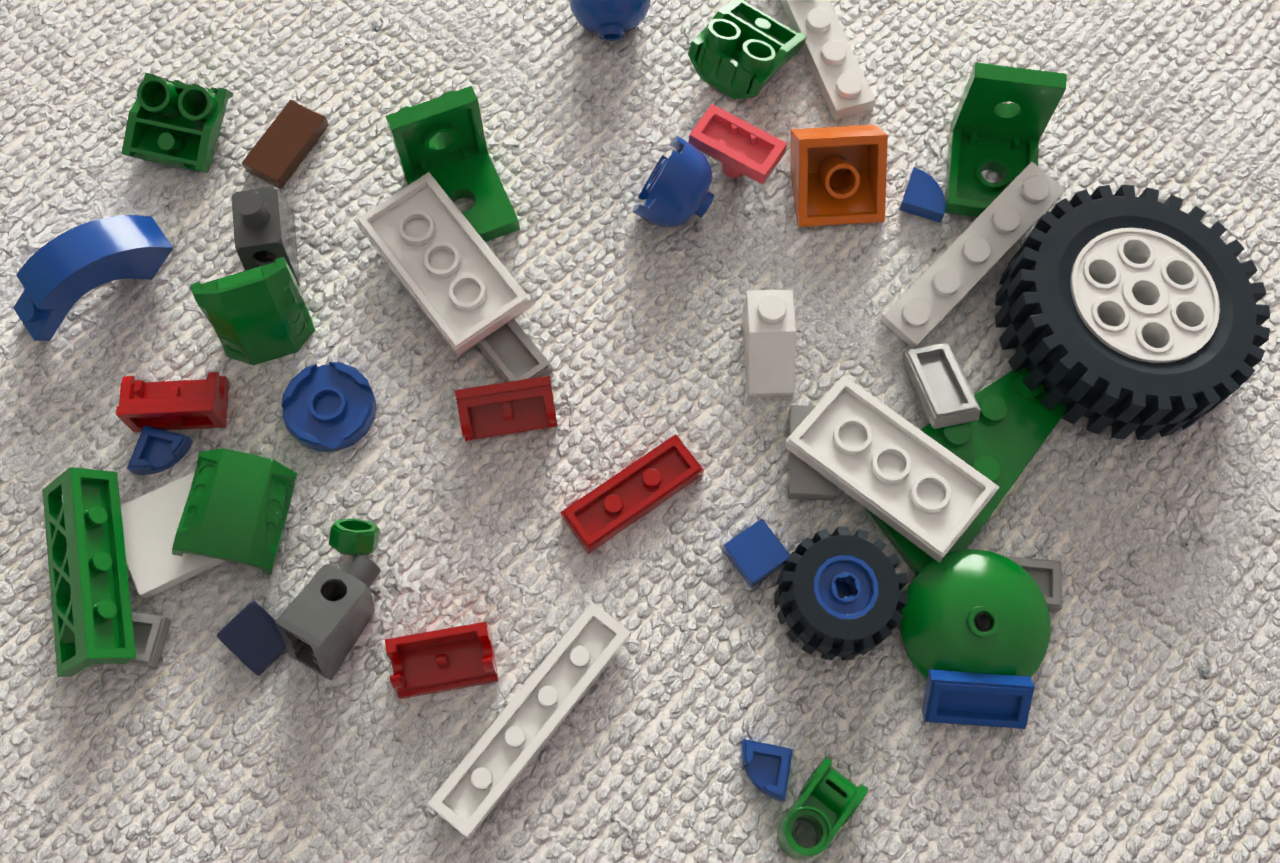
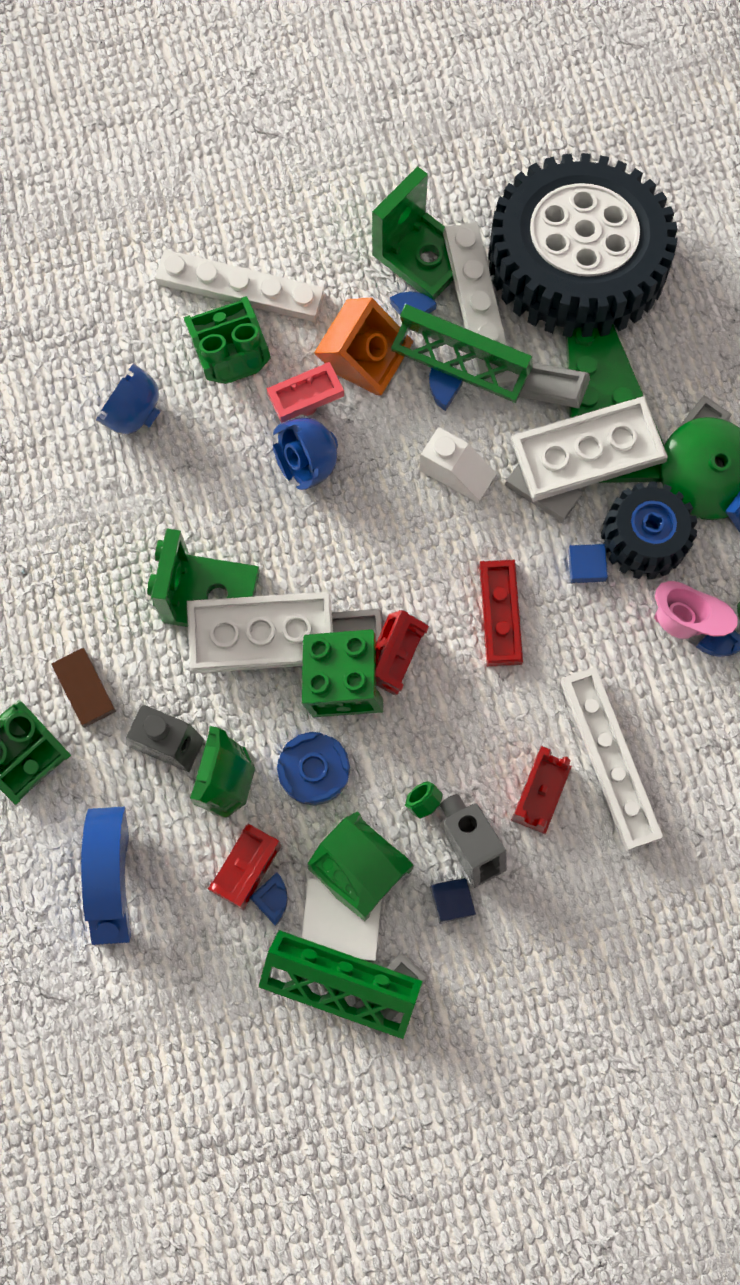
camera: 55 degrees left, 5 degrees up
(438, 359) = (340, 674): none -> green bracket
(773, 704) = (690, 613): none -> bright pink piece
(855, 279) = (443, 388): none -> blue tile
(913, 256) = (466, 341): none -> green fence

